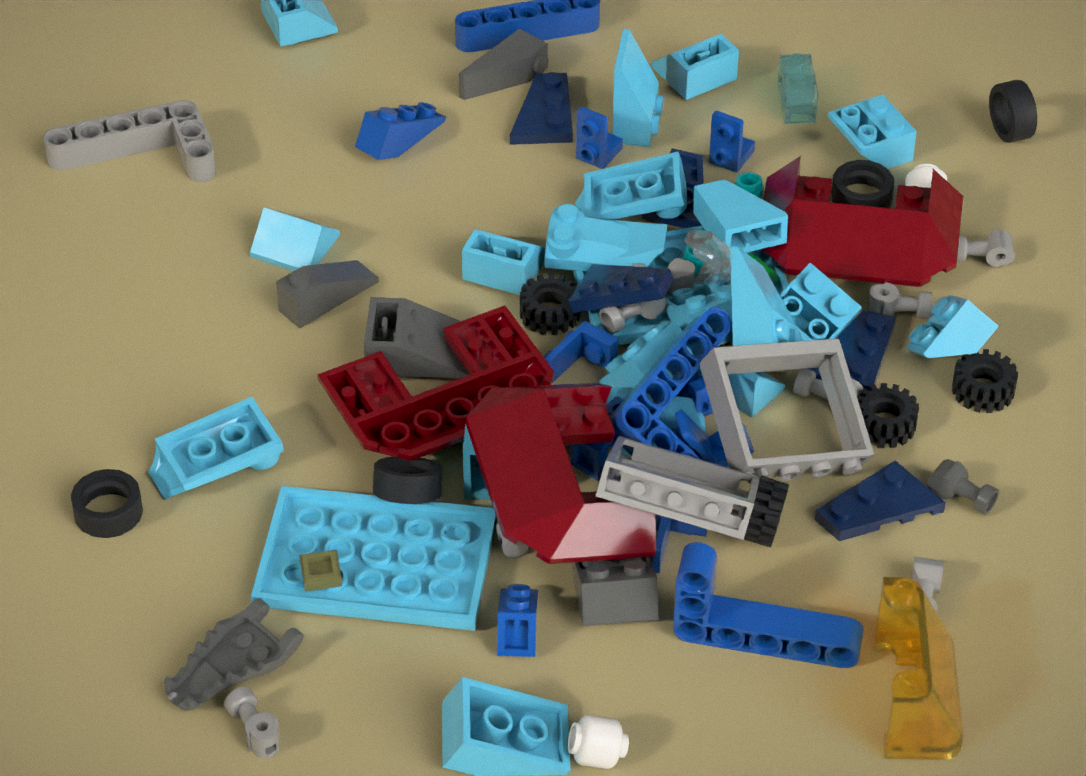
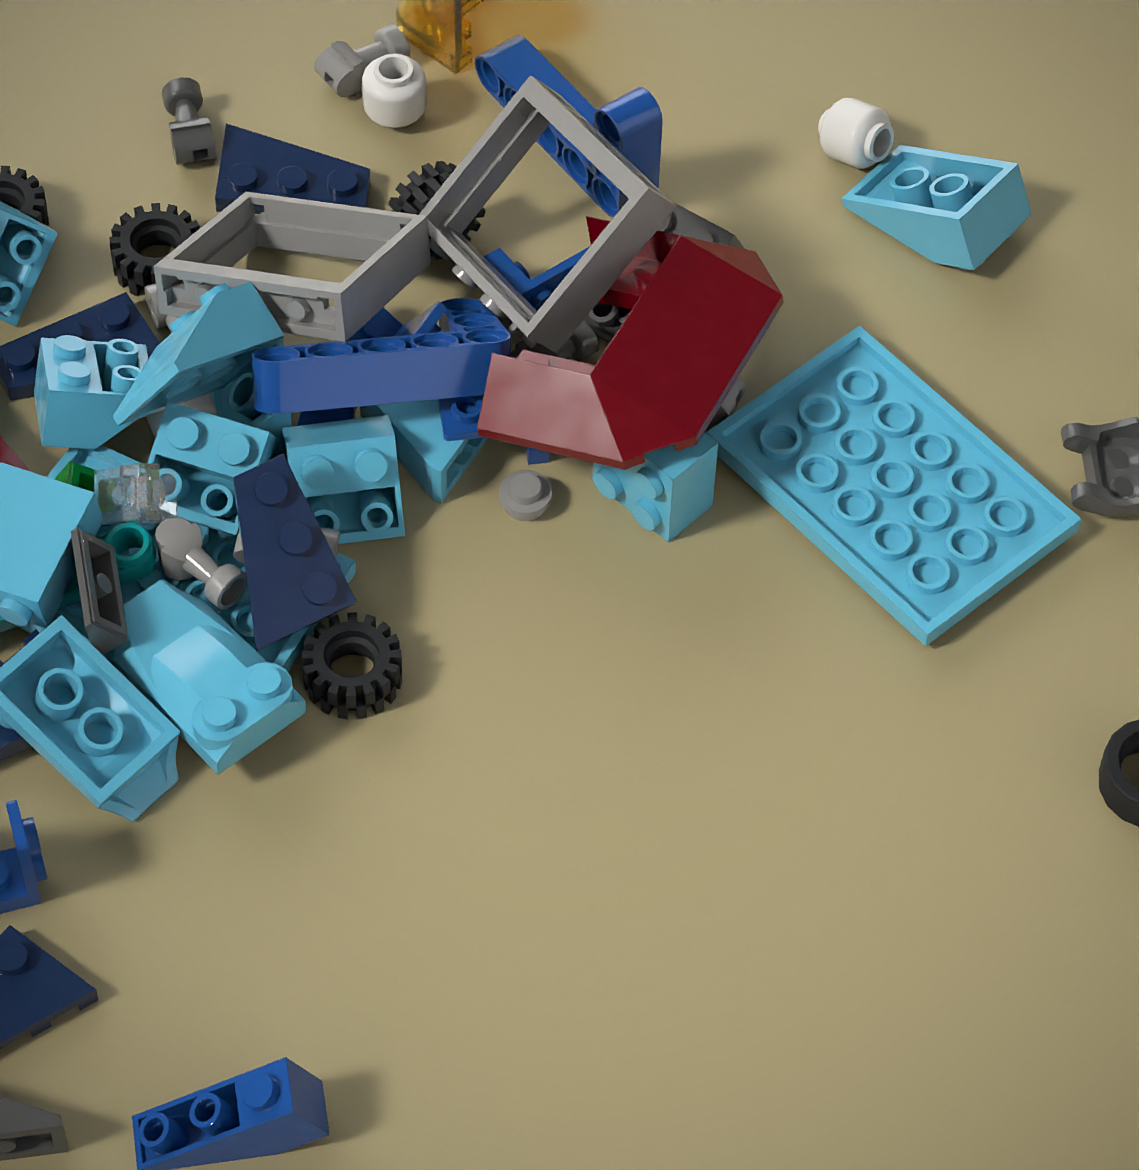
camera: 140 degrees left, 10 degrees up
(214, 448) = (966, 738): medium azure slope -> none
(291, 240) = (562, 1033): medium azure slope -> none
(320, 288) = (606, 904): dark grey slope -> none
(320, 570) = (980, 484): olive tile -> none
(407, 480) = (747, 503): black tyre -> none
(411, 339) = (583, 720): dark grey slope -> none
(411, 427) = (630, 572): dark red slope -> none
(500, 261) = (337, 762): medium azure slope -> none
(517, 621) = (806, 298): blue bracket -> none
(584, 341) = (395, 578): blue bracket -> none
(679, 210) = (99, 591): none -> dark grey slope
(873, 564) = (394, 90): none -> white head

